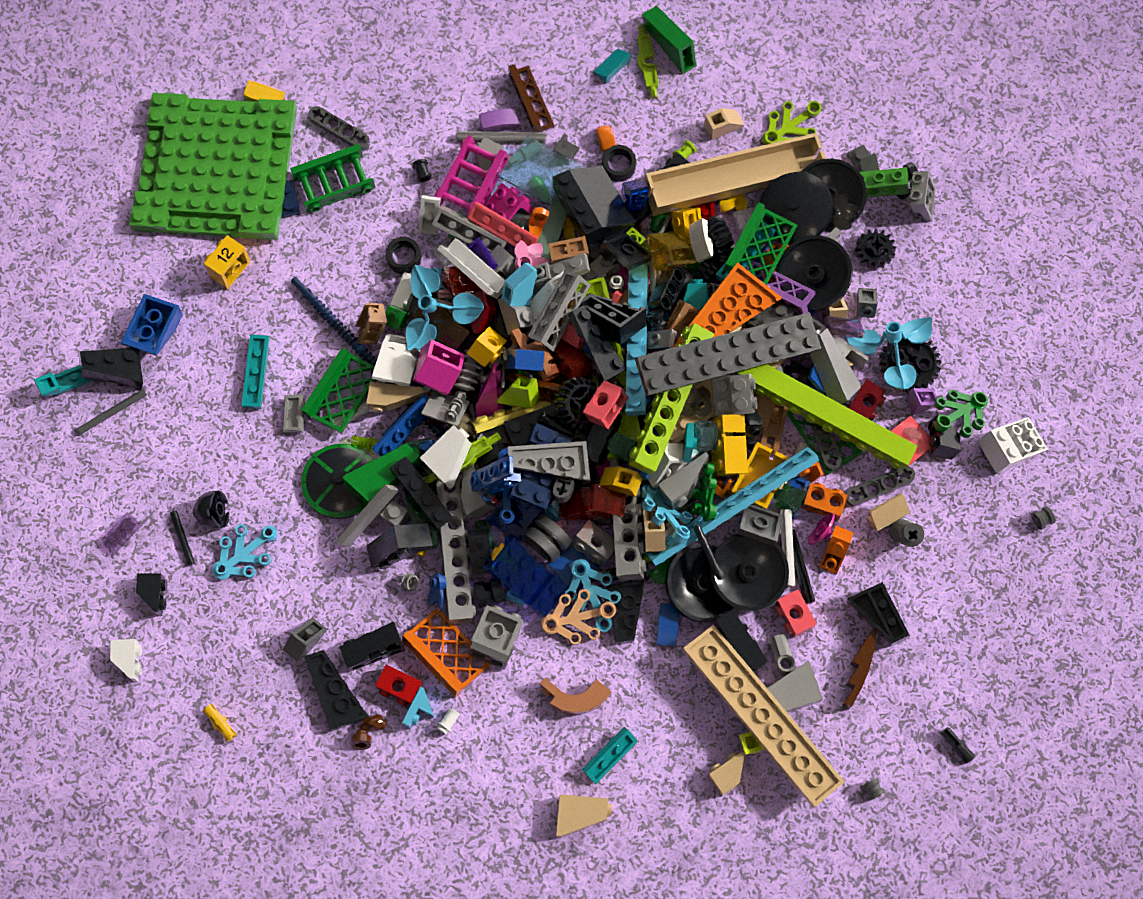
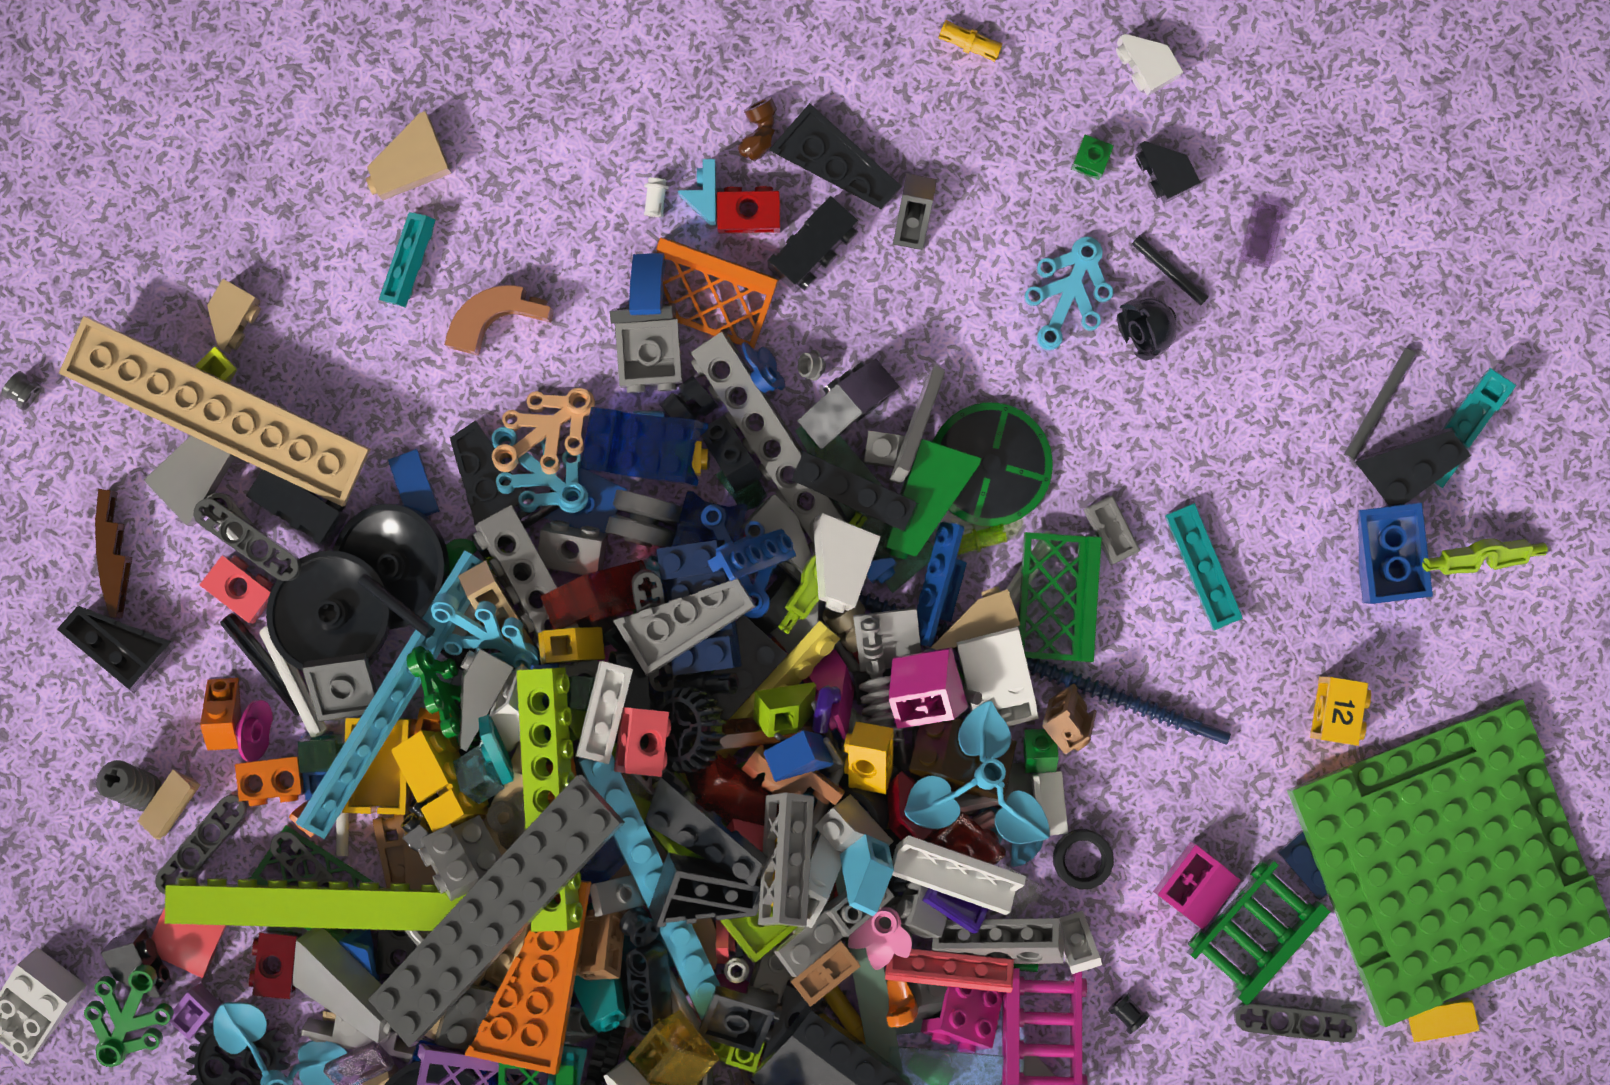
camera: 155 degrees right, 15 degrees up
(99, 303) = (1498, 556): none -> lime piece
(189, 619) = (1092, 157): none -> green brick
(352, 215) = (1197, 885): none -> dark pink slope
(477, 668) = (647, 284): none -> blue slope
(494, 385) = (826, 698): none -> dark purple arm
(618, 428) = (604, 712): none -> white plate
(773, 635) = (247, 540): none -> dark grey beam

